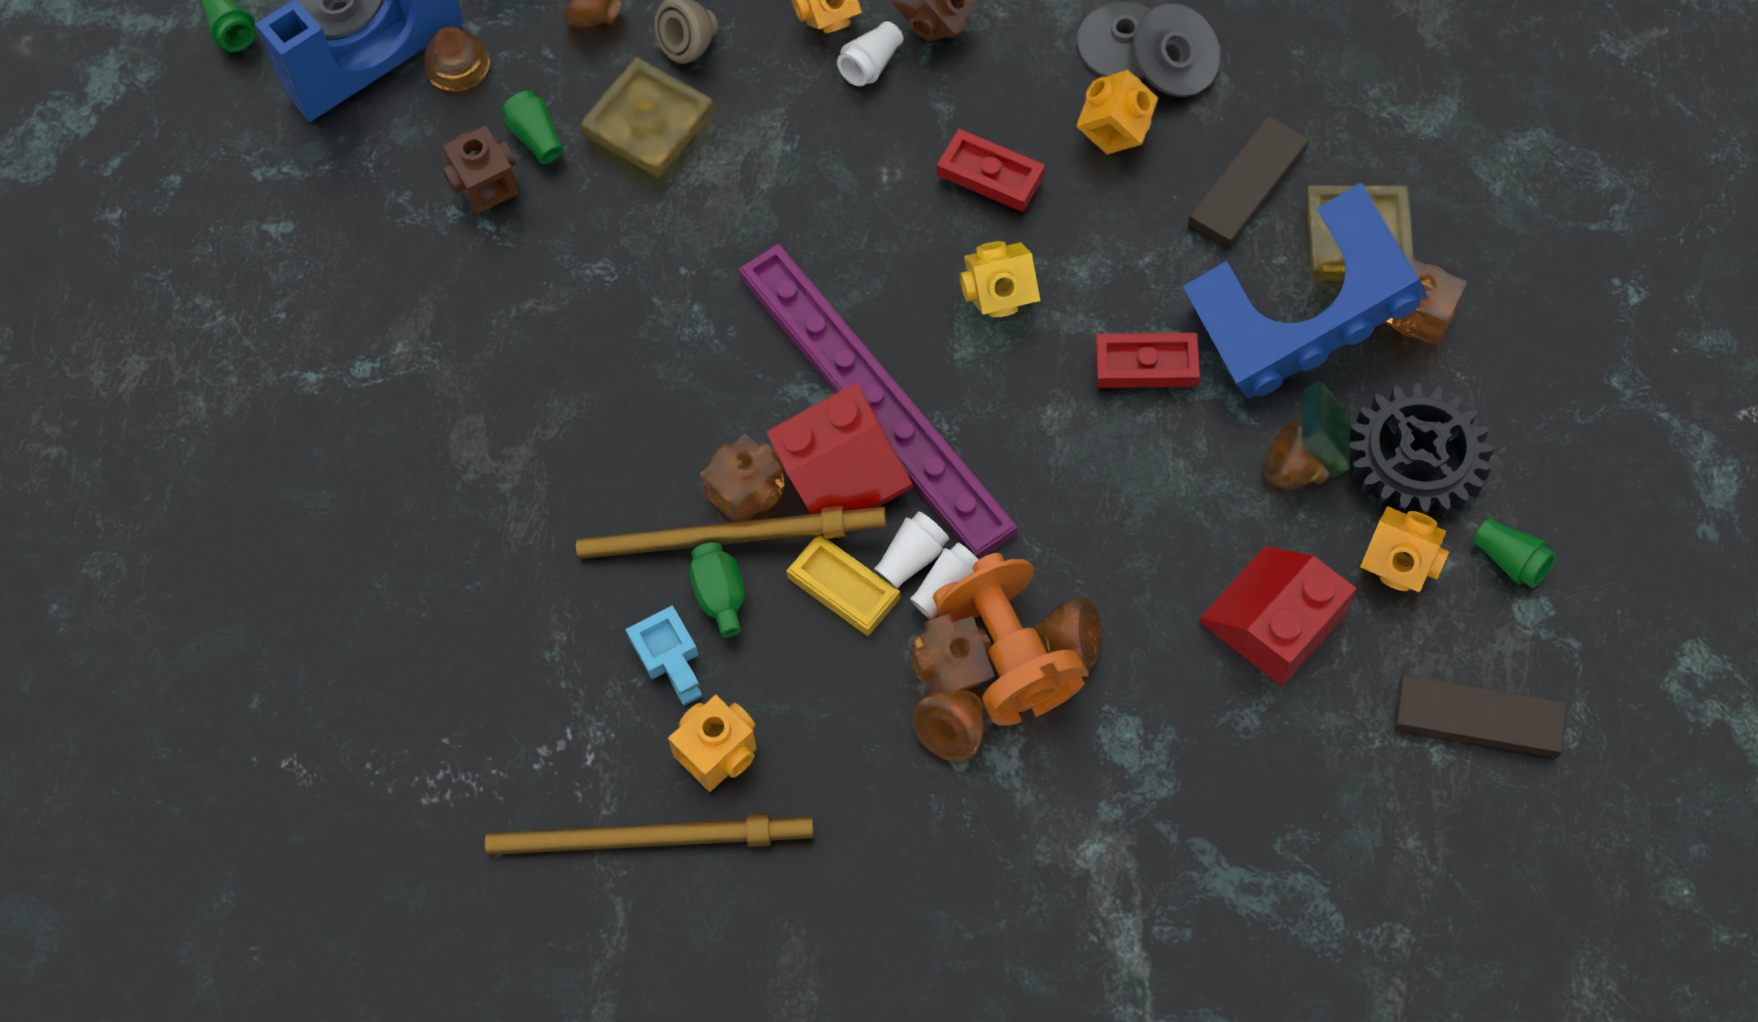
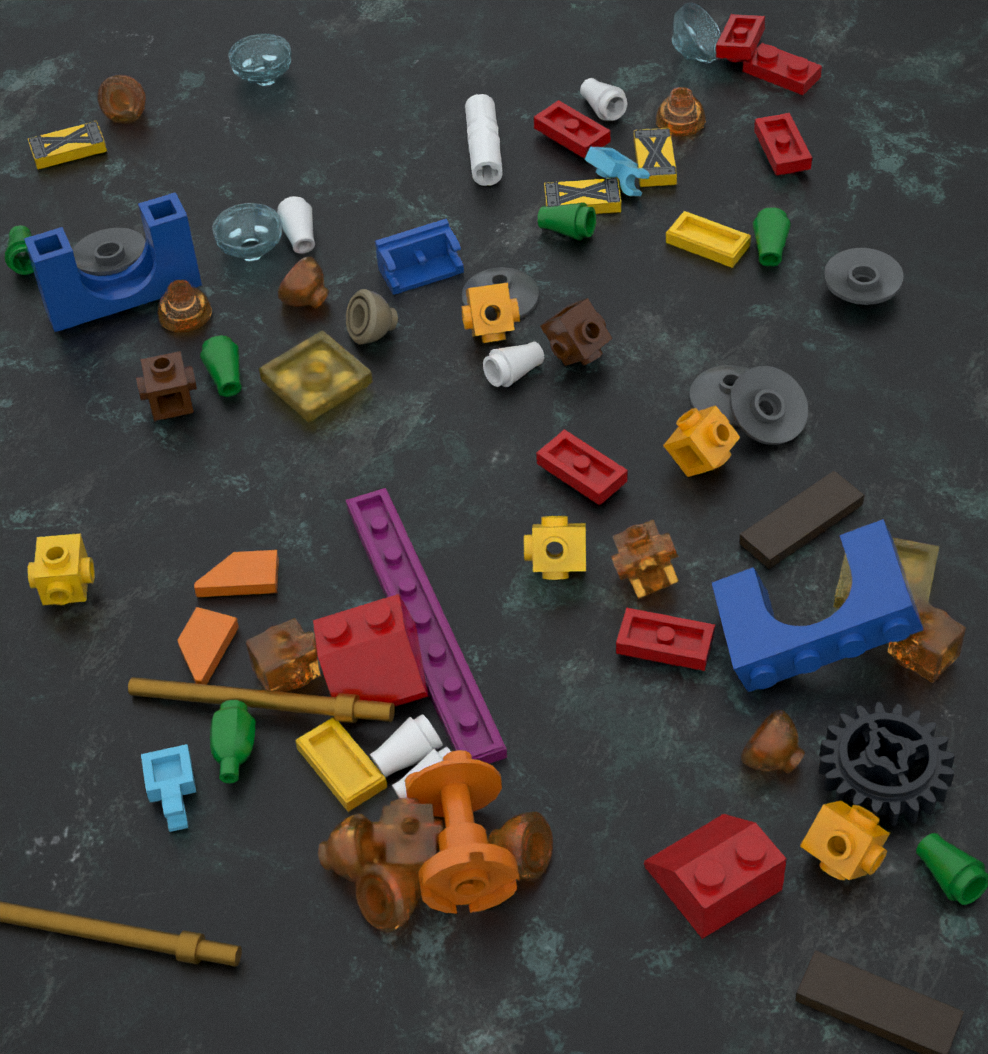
camera: 15 degrees right, 15 degrees down
(449, 430) = (61, 569): none -> yellow brick
(641, 477) = (206, 641): none -> orange tile
(653, 386) = (241, 575): none -> orange tile
(714, 741) = (177, 861): light orange brick -> none
(892, 682) = (349, 847): none -> clear orange brick
(1100, 271) = (645, 558): none -> clear orange brick
(1326, 428) = (802, 722): clear green tile -> none

